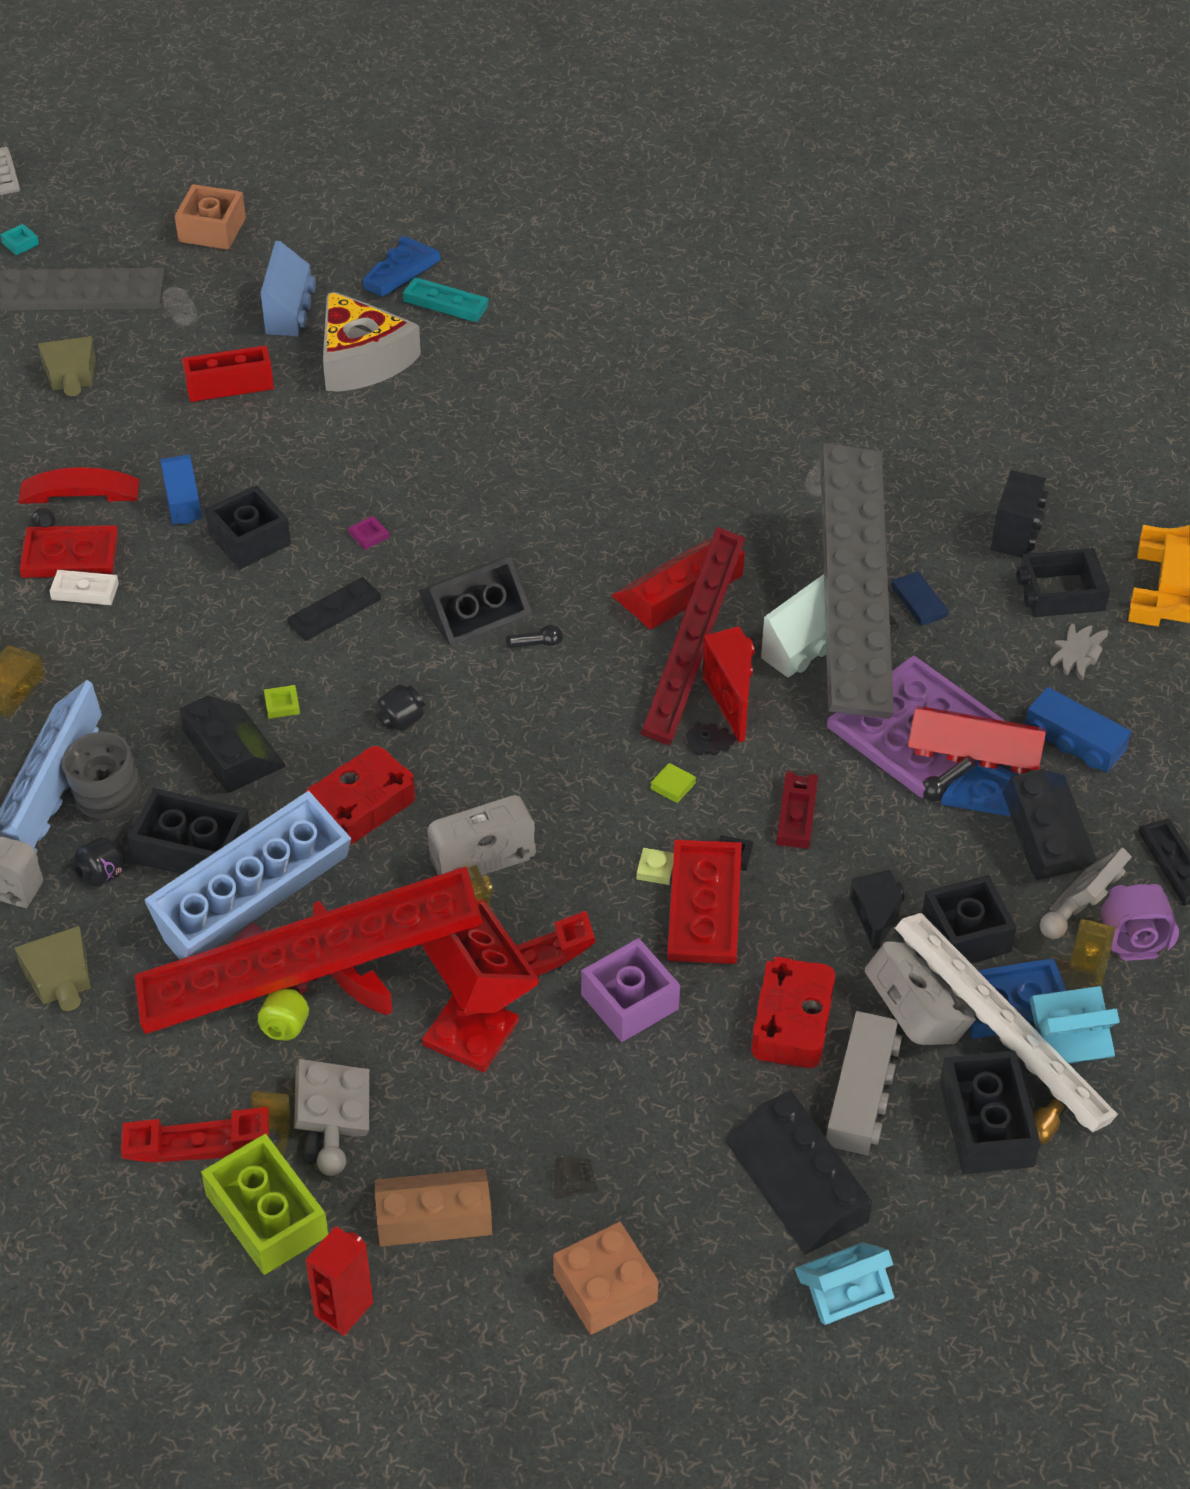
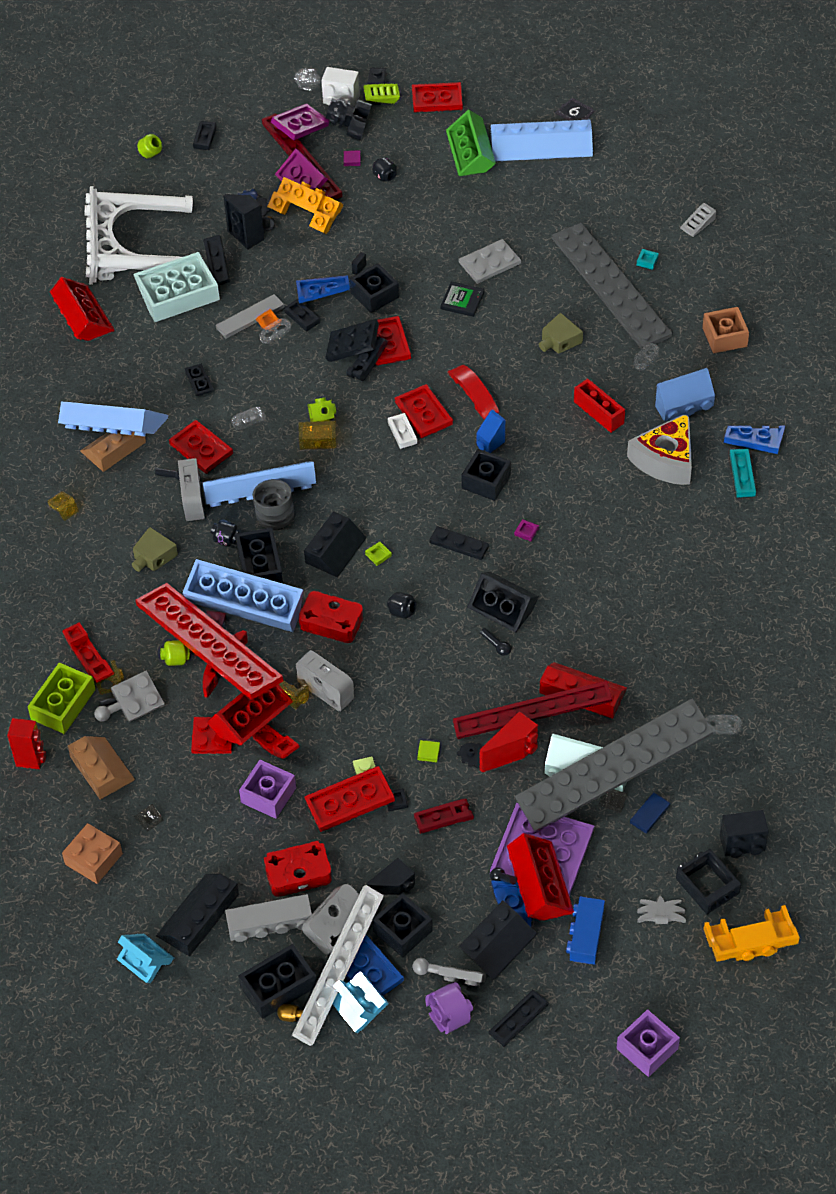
camera: 65 degrees right, 5 degrees up
(43, 518) = (439, 388): black bar -> none
(1092, 949) = (409, 997): clear yellow panel -> none

